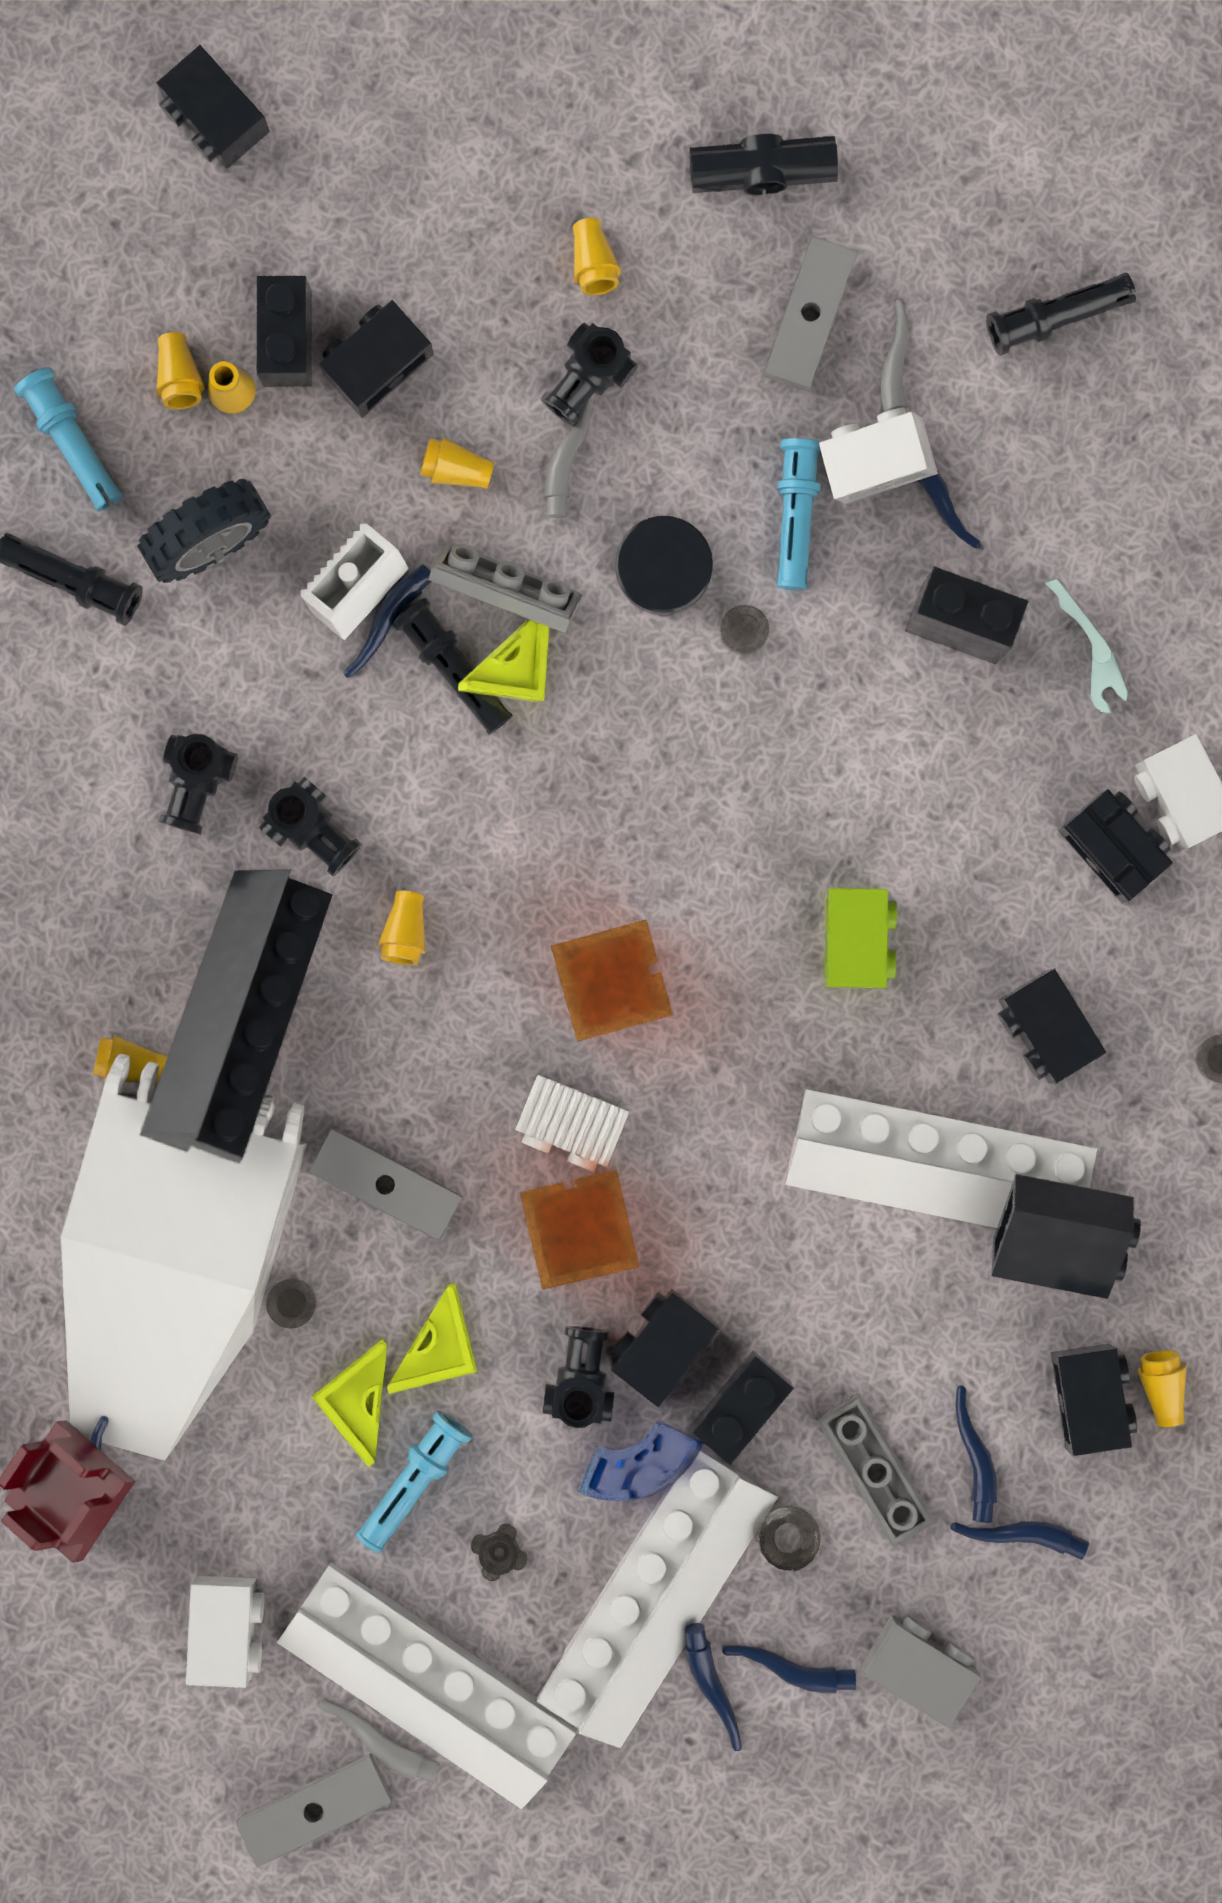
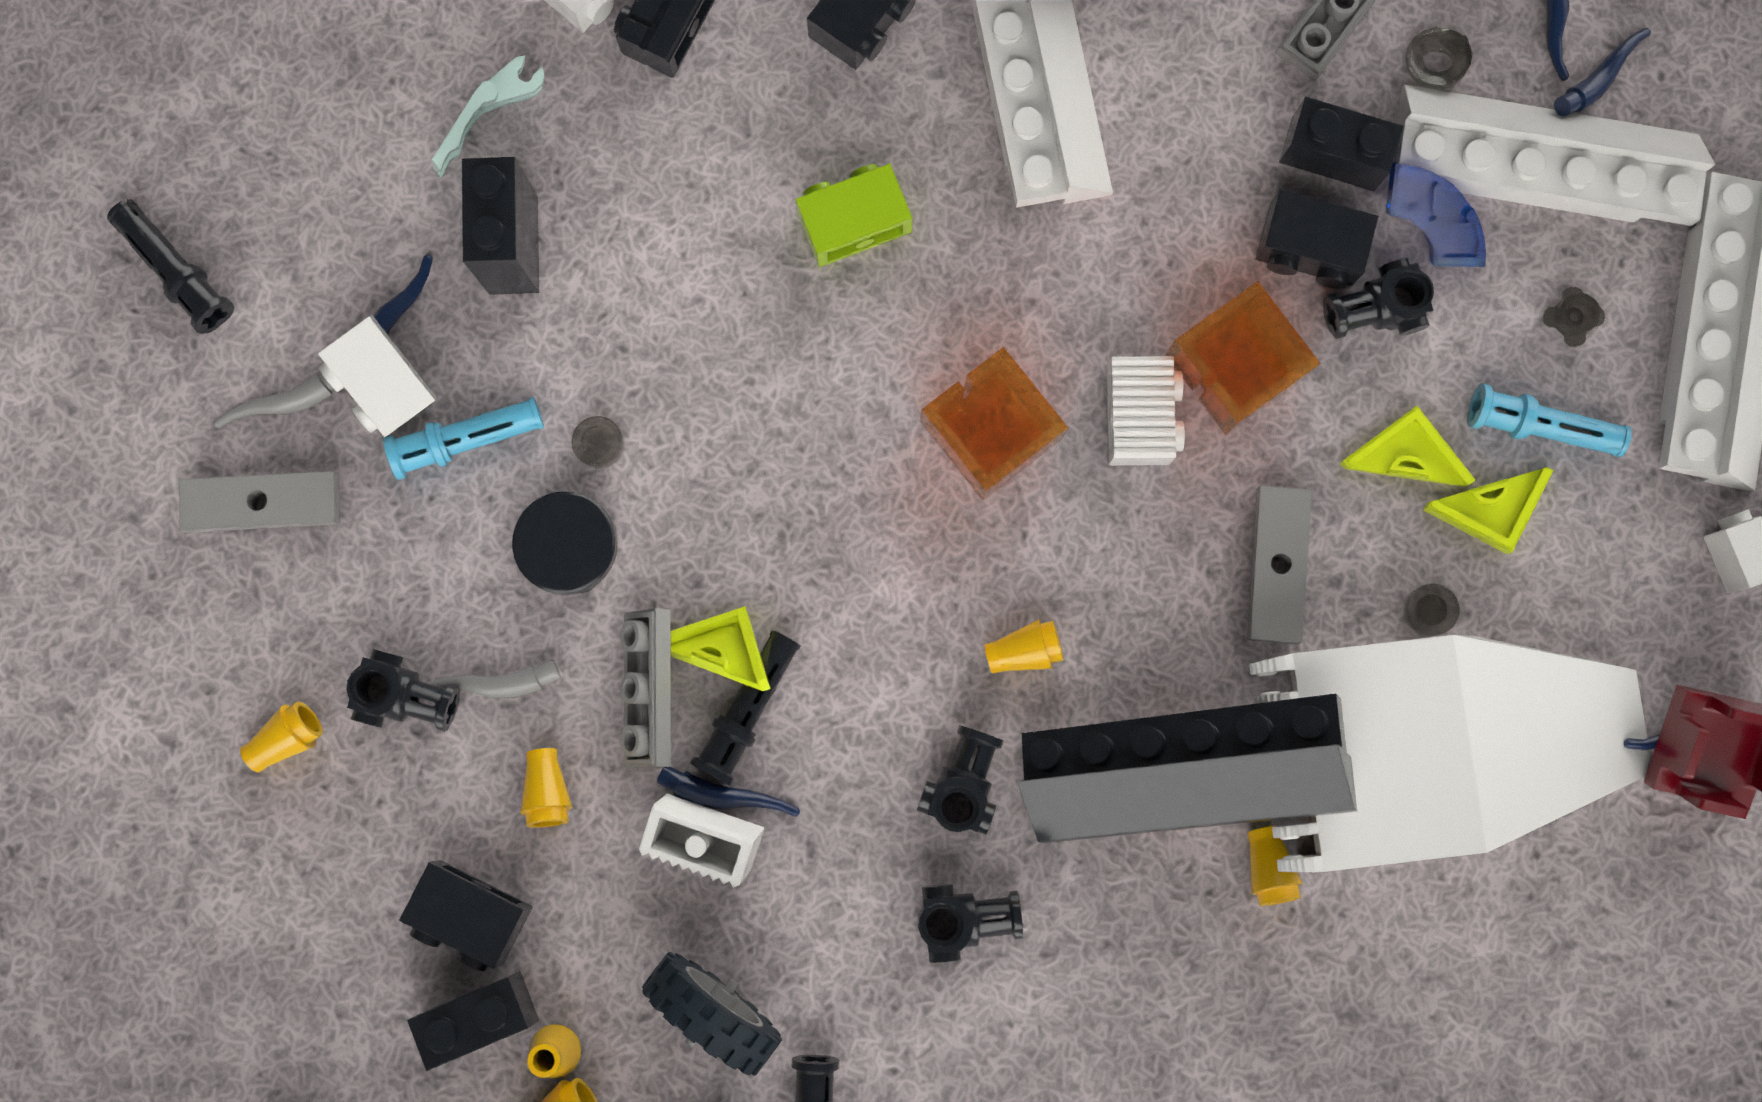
camera: 115 degrees left, 5 degrees down
(763, 164) = (124, 607): black piece -> none

